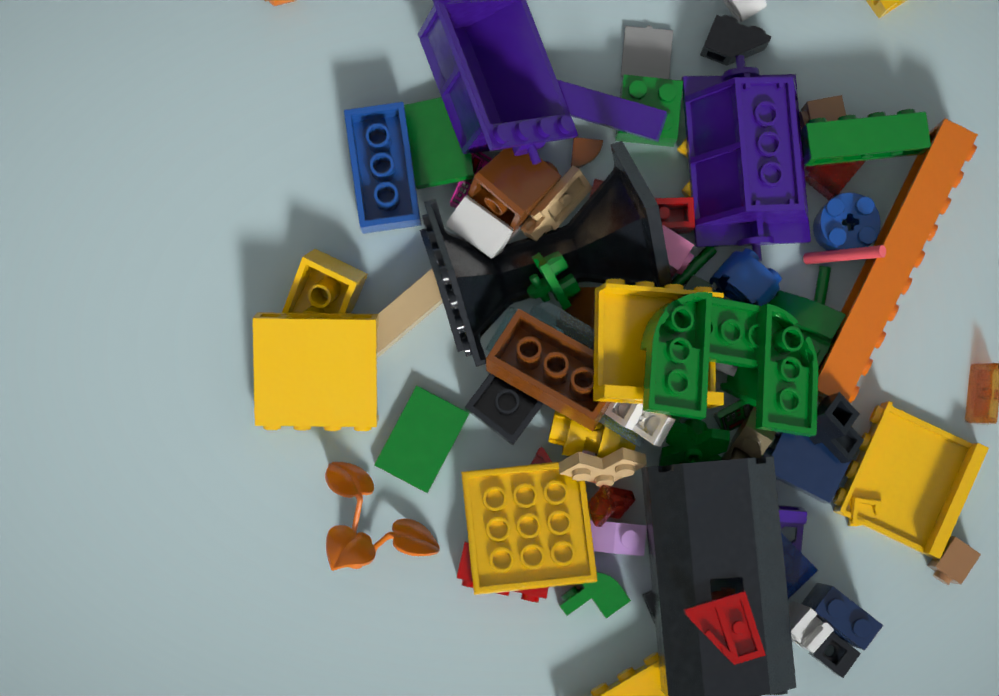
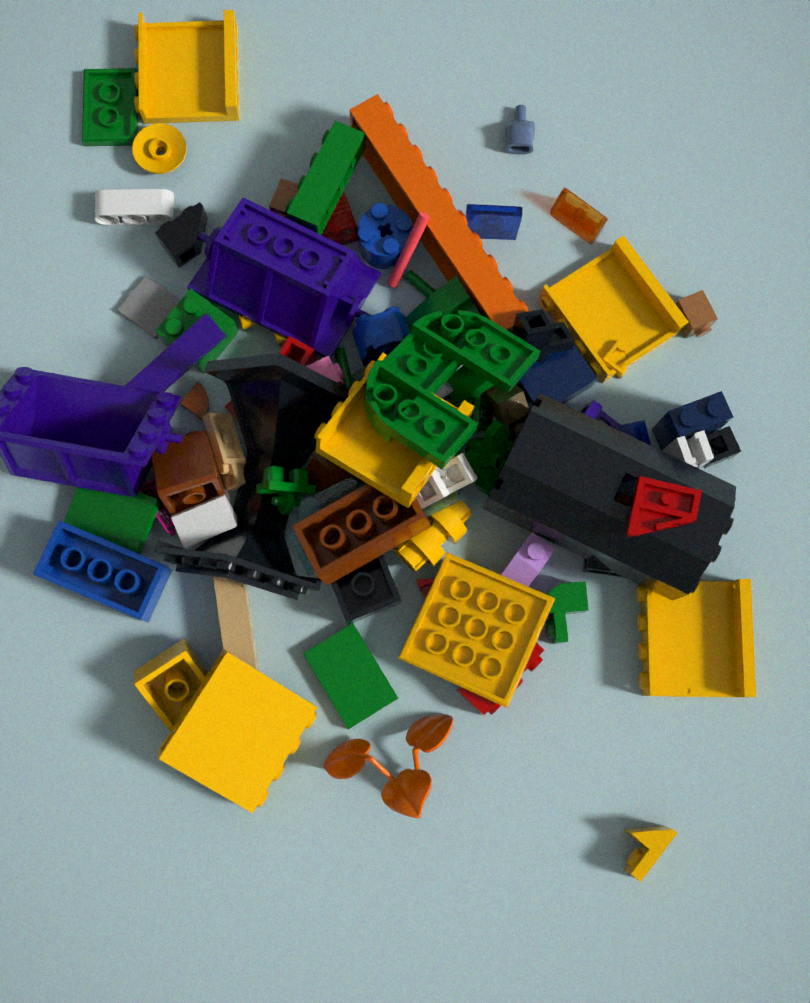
camera: 60 degrees left, 5 degrees down
(602, 470) = (468, 537): tan plate -> none
(608, 503) = (495, 552): clear red bracket -> none
(923, 316) = (494, 221): none -> clear blue tile

